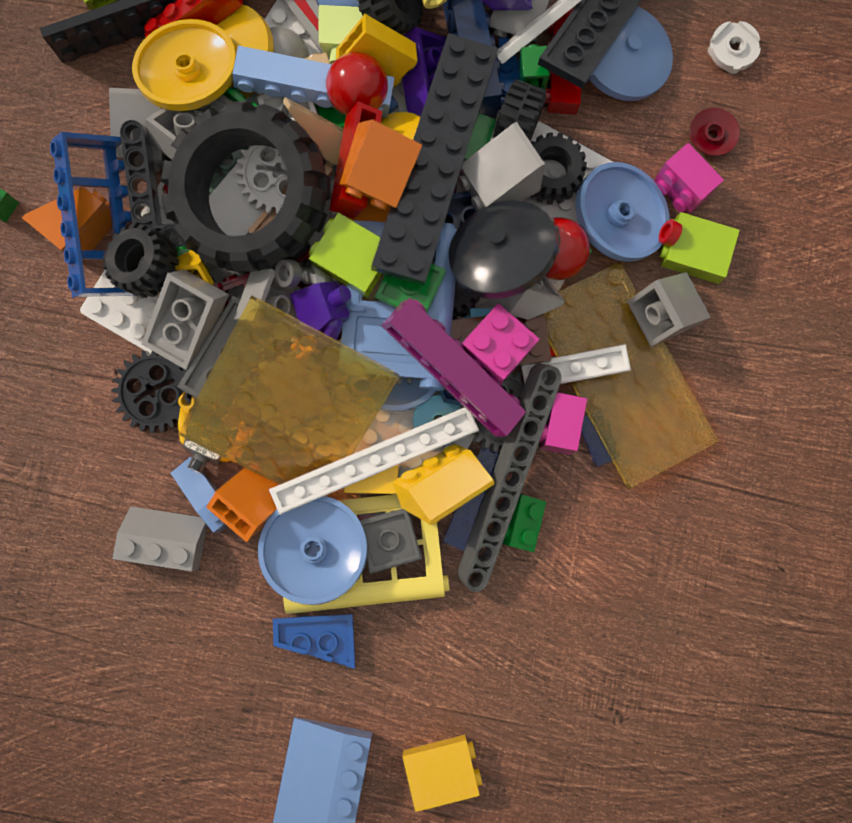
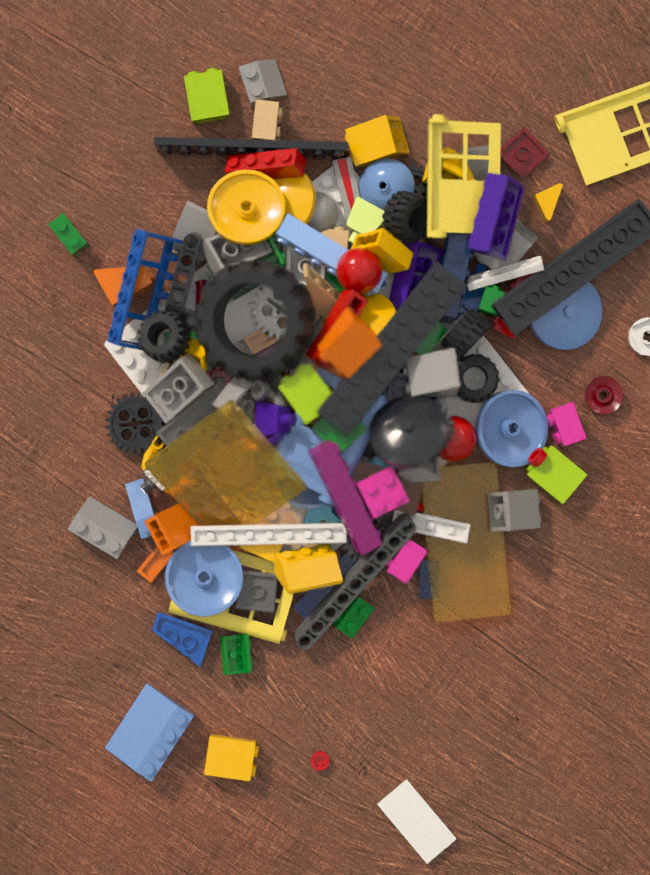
camera: 25 degrees right, 5 degrees up
(245, 561) = (154, 565): none -> orange tile
(395, 632) = (236, 654): none -> green bracket
(558, 727) = (320, 761): none -> red tile
(714, 756) = (416, 821): none -> white tile

